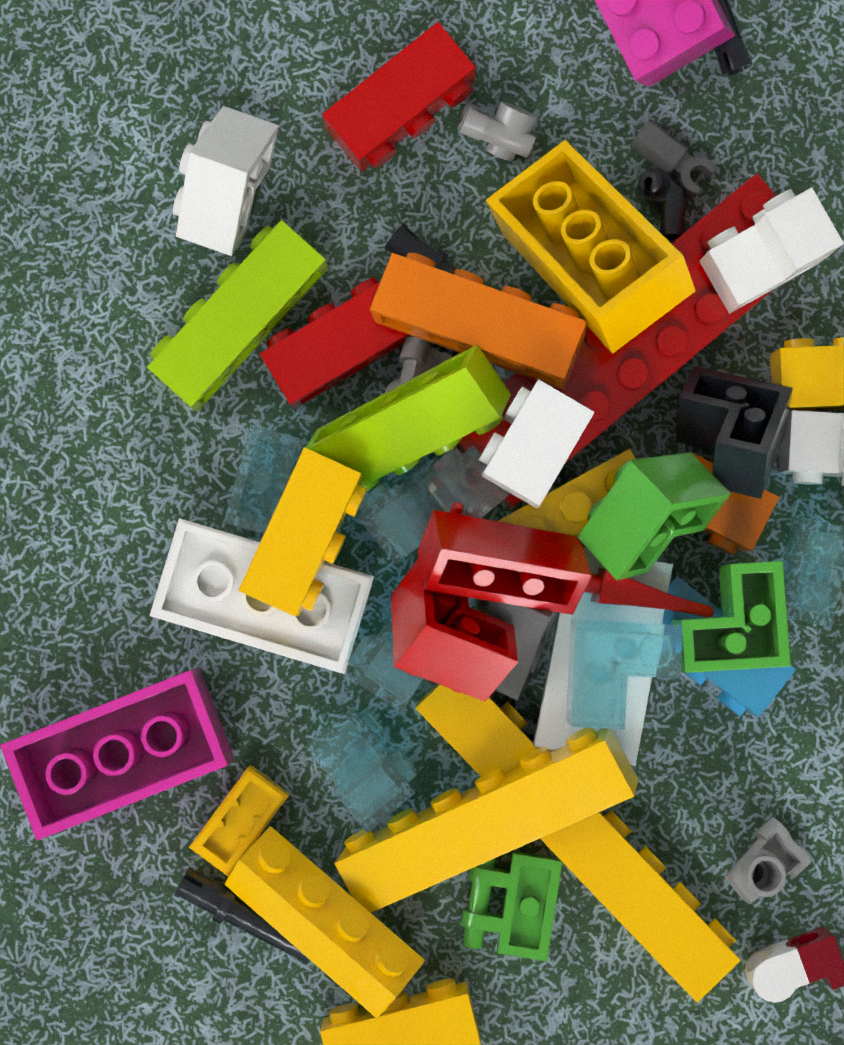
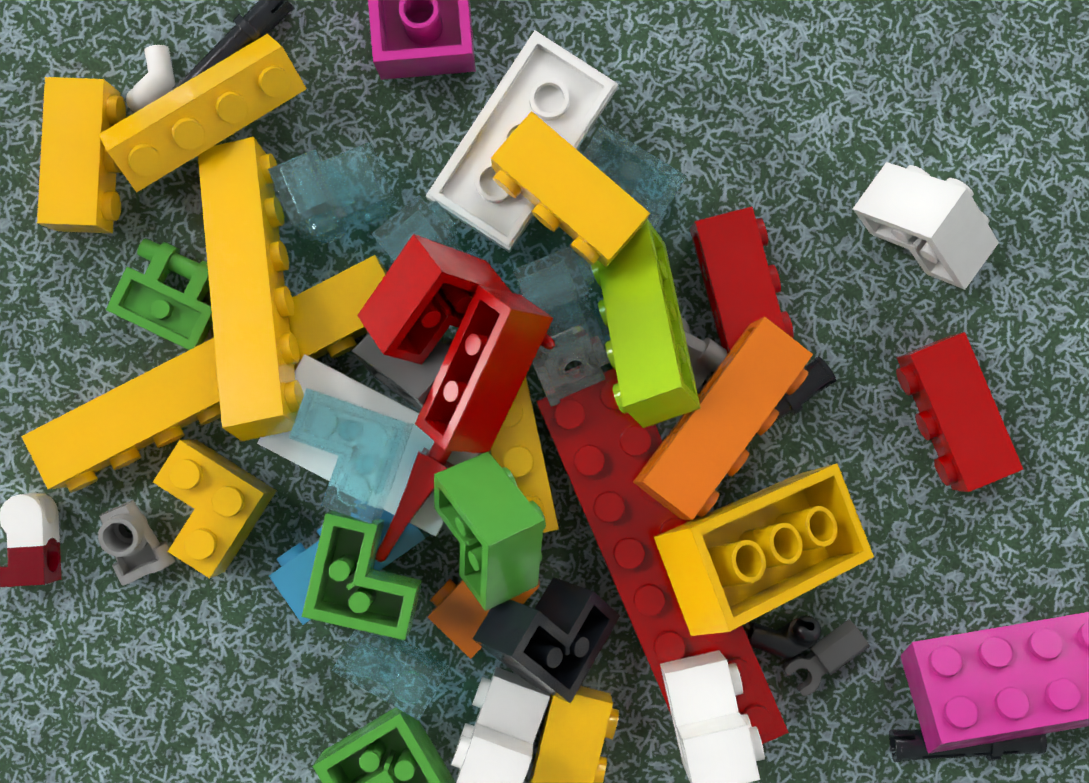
camera: 105 degrees right, 0 degrees up
(238, 315) = (793, 198): lime brick -> none
(239, 820) = (323, 66): yellow plate -> none
(306, 981) = (156, 82): none -> white arm
(506, 132) = (896, 505): light grey plate -> none
(536, 444) = (588, 432): white brick -> none
(696, 786) = (224, 503): none -> yellow brick

